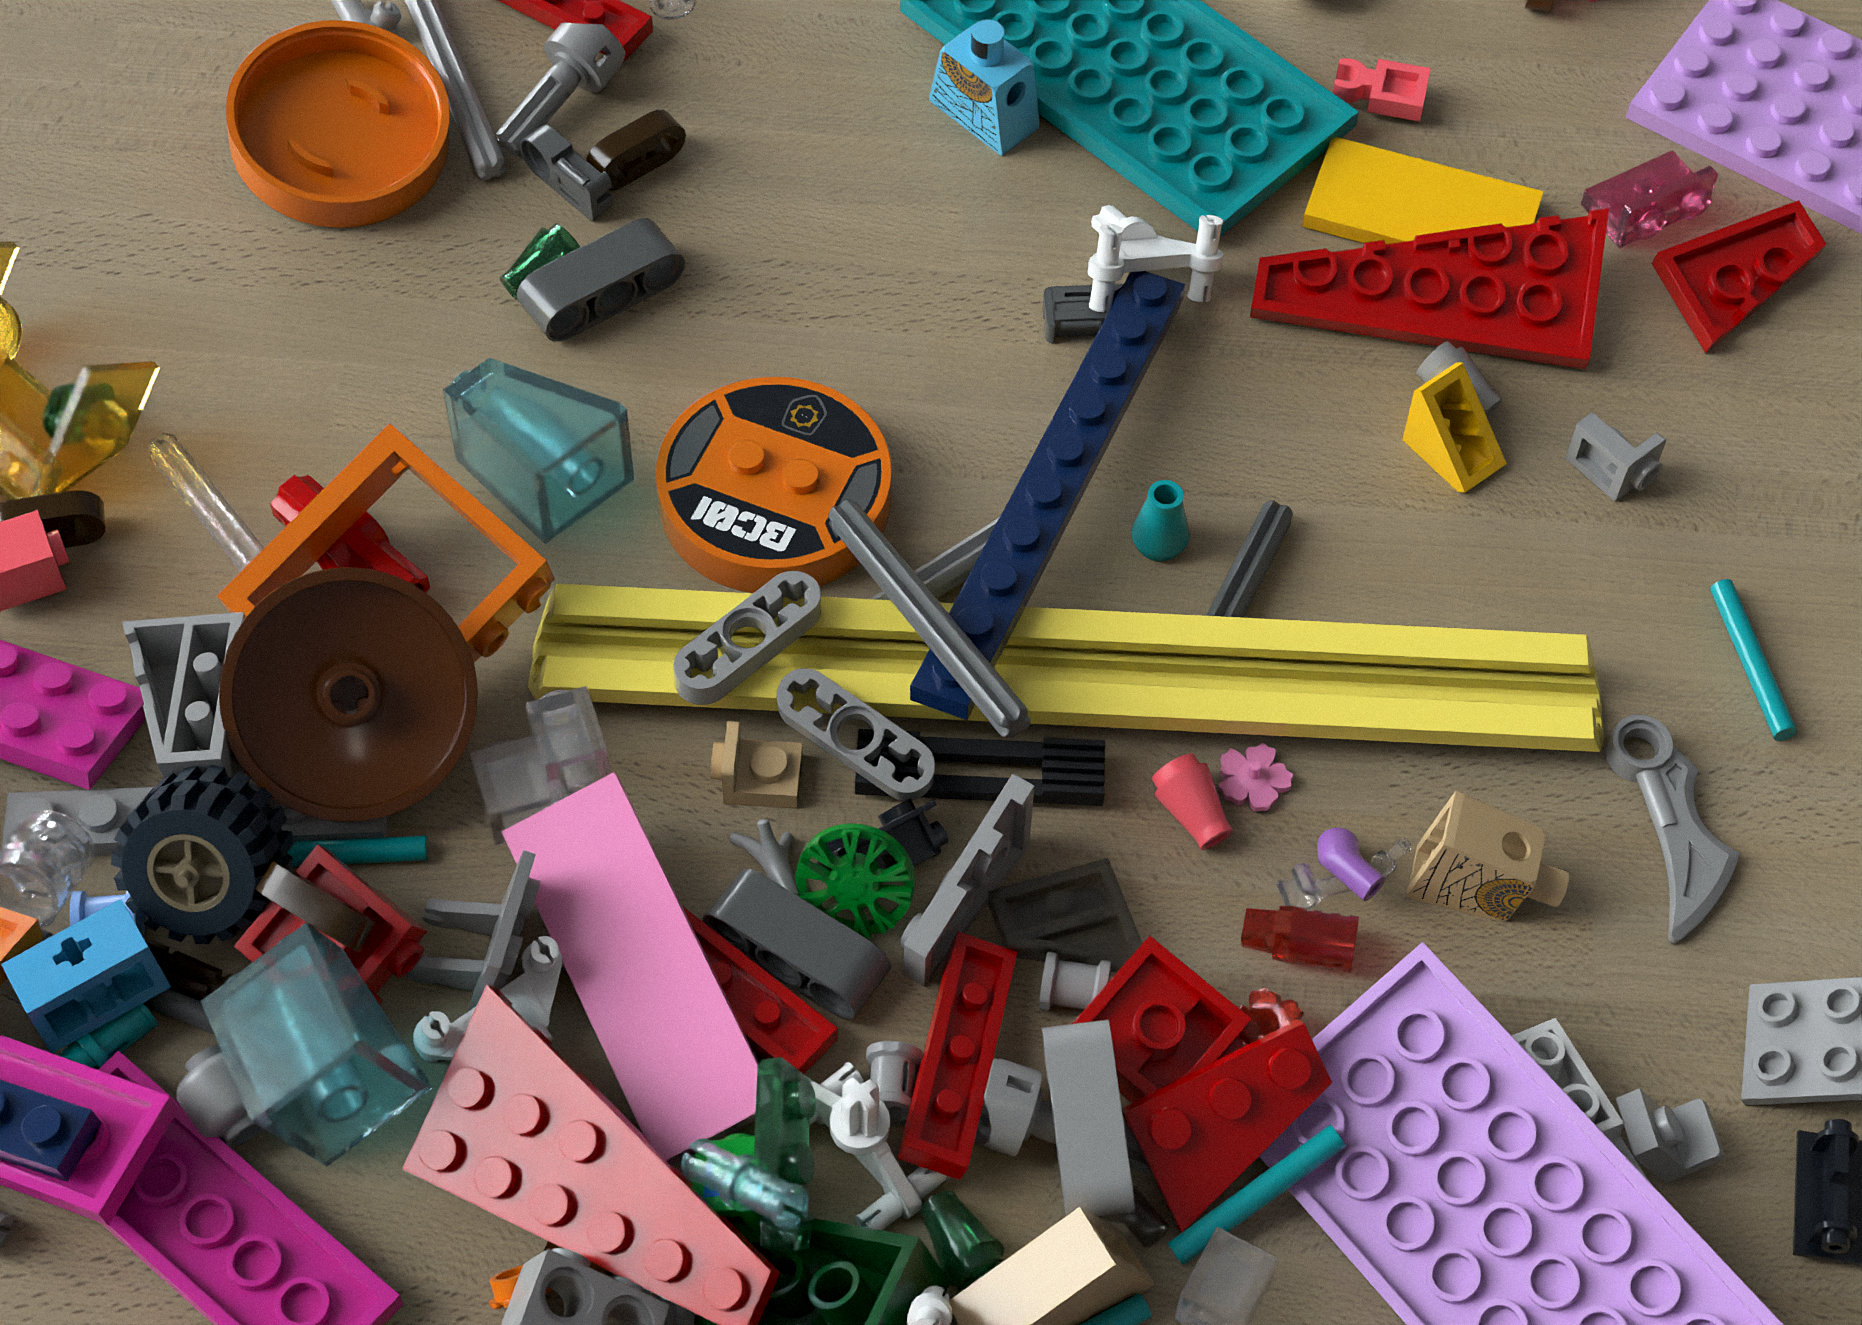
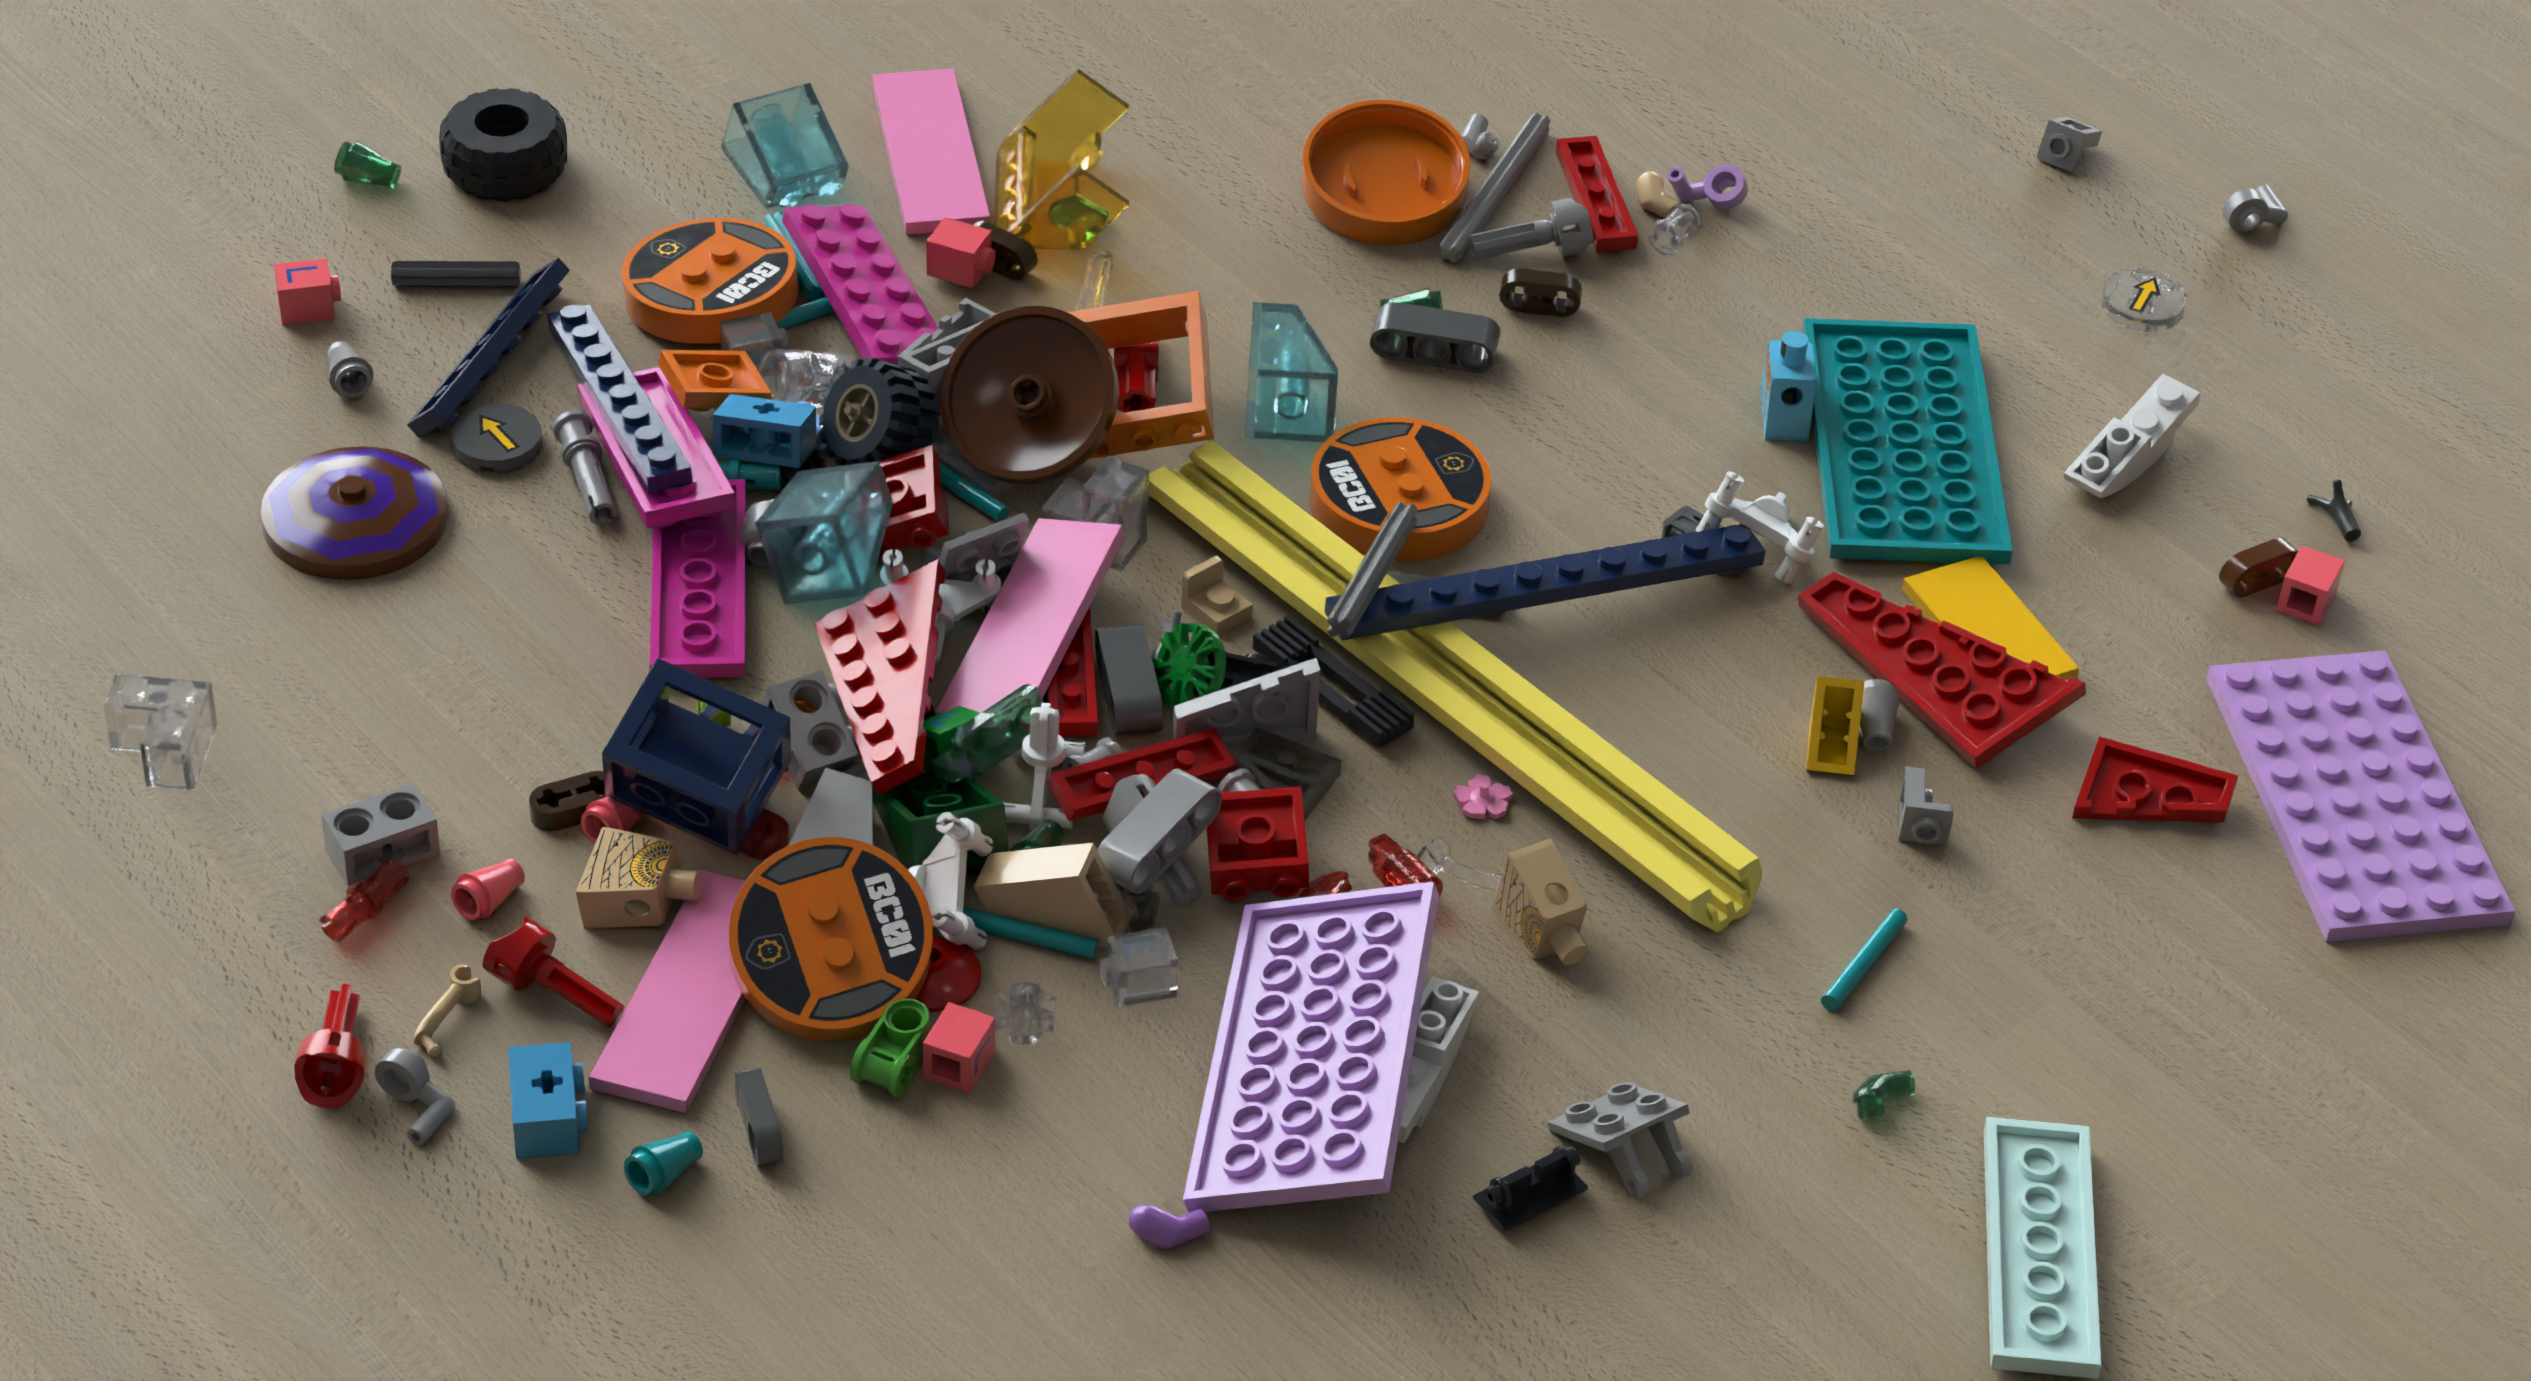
camera: 45 degrees right, 15 degrees down
(316, 906) = (897, 466): dark brown beam -> none
(566, 172) = (1487, 278): dark grey piece -> none
(741, 662) = (1307, 536): light grey beam -> none
(745, 1183) = (947, 726): clear light blue pin -> none
(809, 720) = (1270, 622): light grey beam -> none
(1162, 524) = (1592, 650): teal cone -> none
(1192, 799) = (1429, 772): coral cone -> none
(1224, 1116) = (1234, 888): red wing -> none
(1252, 561) = (1627, 707): dark grey axle -> none
(1258, 1193) = (1228, 941): teal bar -> none
(1341, 856) = (1468, 857): medium lavender arm -> none
(1391, 89) = (2055, 559): coral plate -> none
(1651, 197) = (2149, 720): clear pink bracket -> none
(1669, 1139) = (1466, 1087): light grey bracket -> none
(1694, 858) = (1689, 1007): light grey piece -> none

